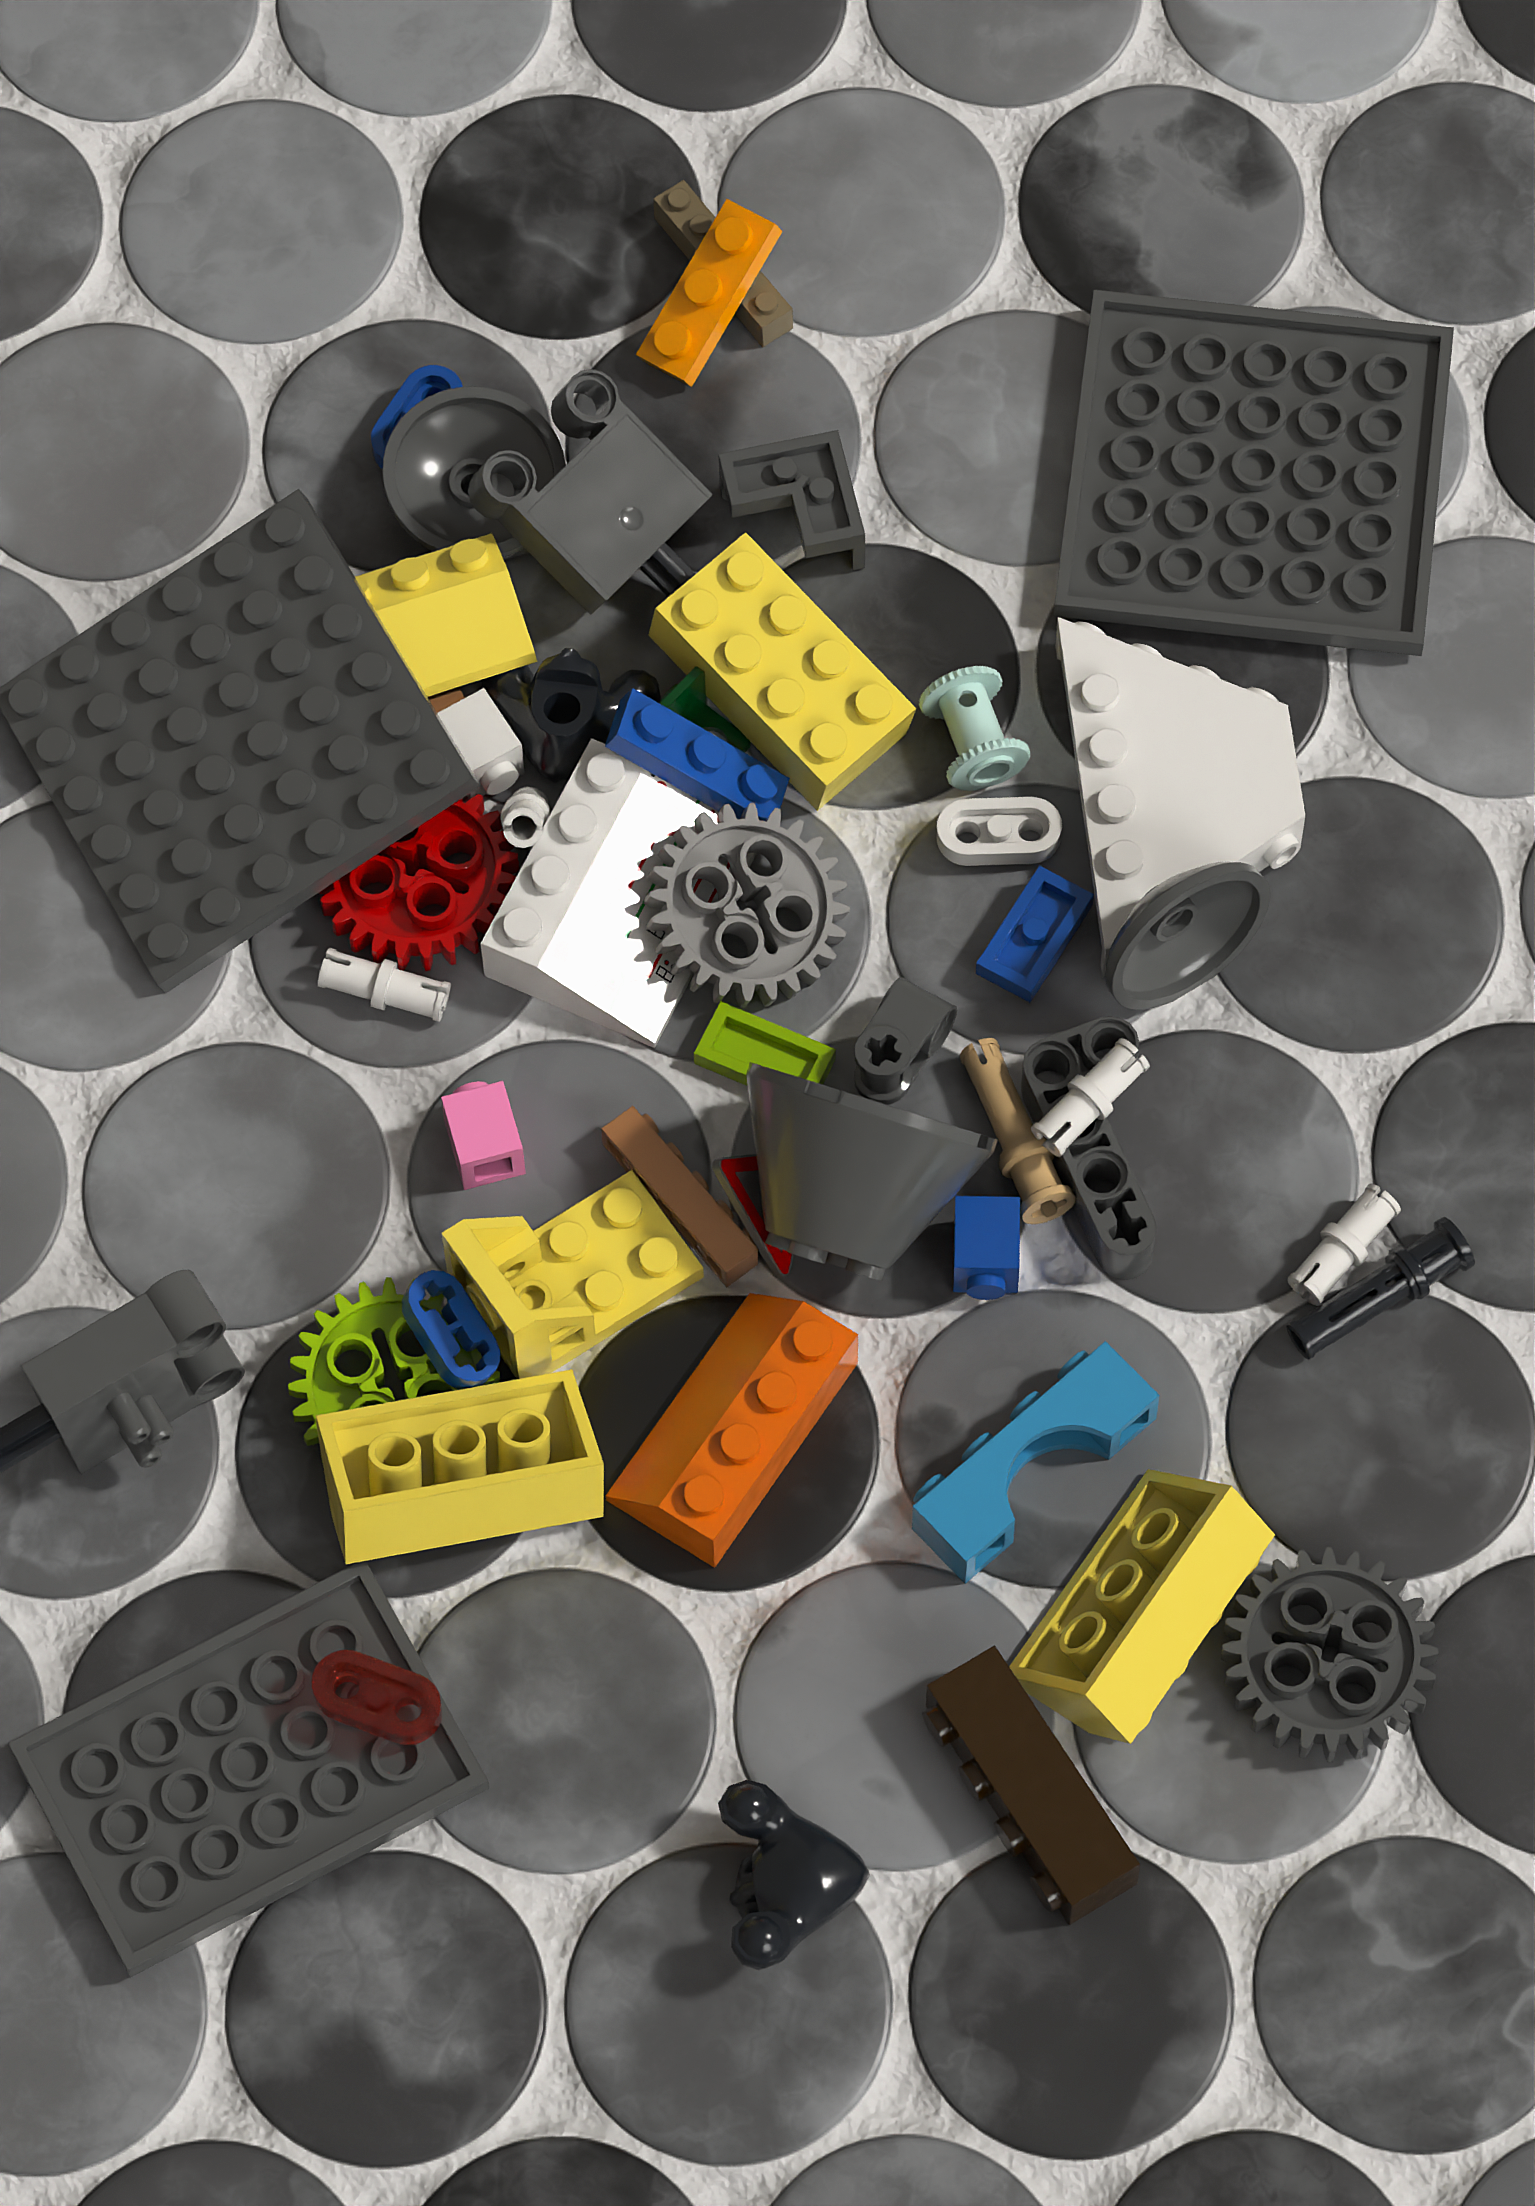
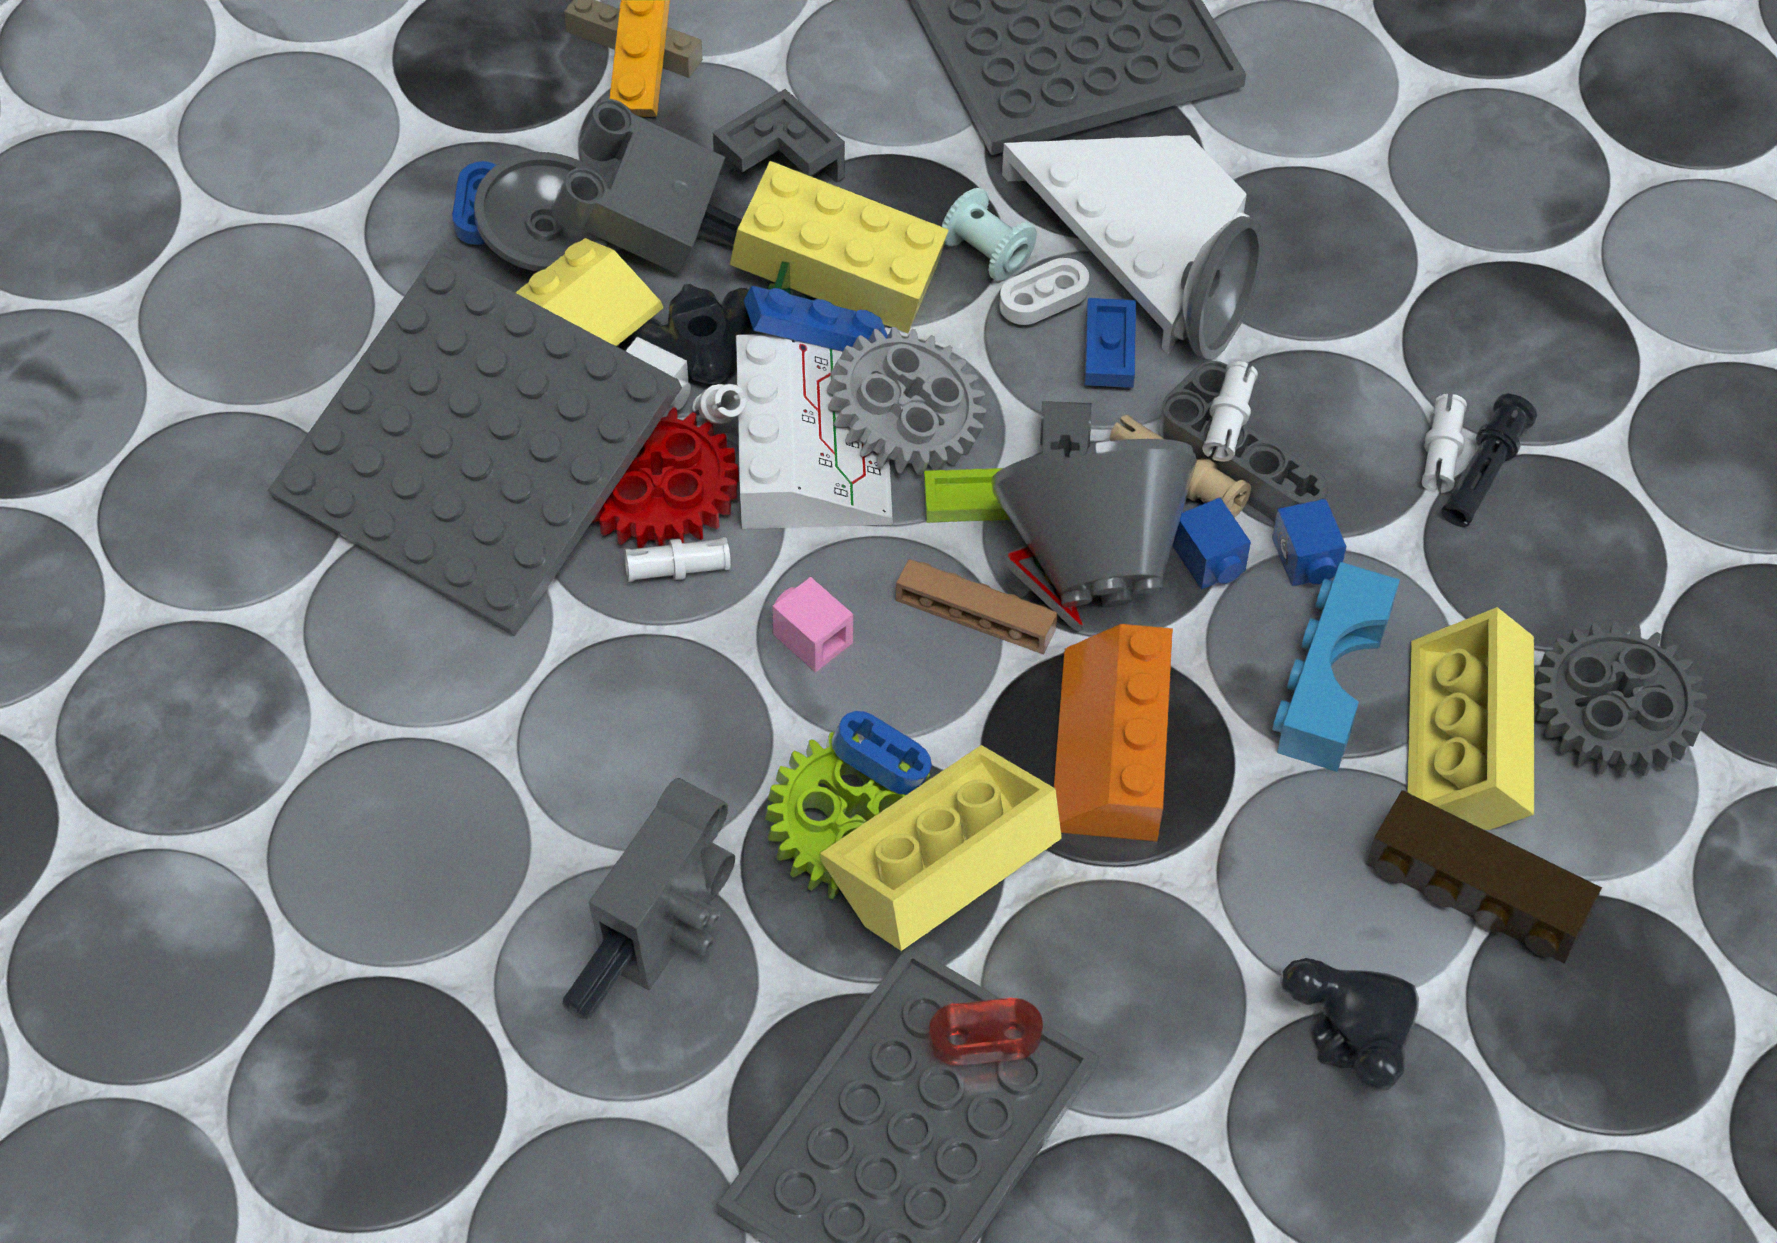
camera: 30 degrees left, 10 degrees down
(571, 1278) = (937, 683): light yellow bracket -> none
(1098, 1297) = (1308, 542): none -> blue brick

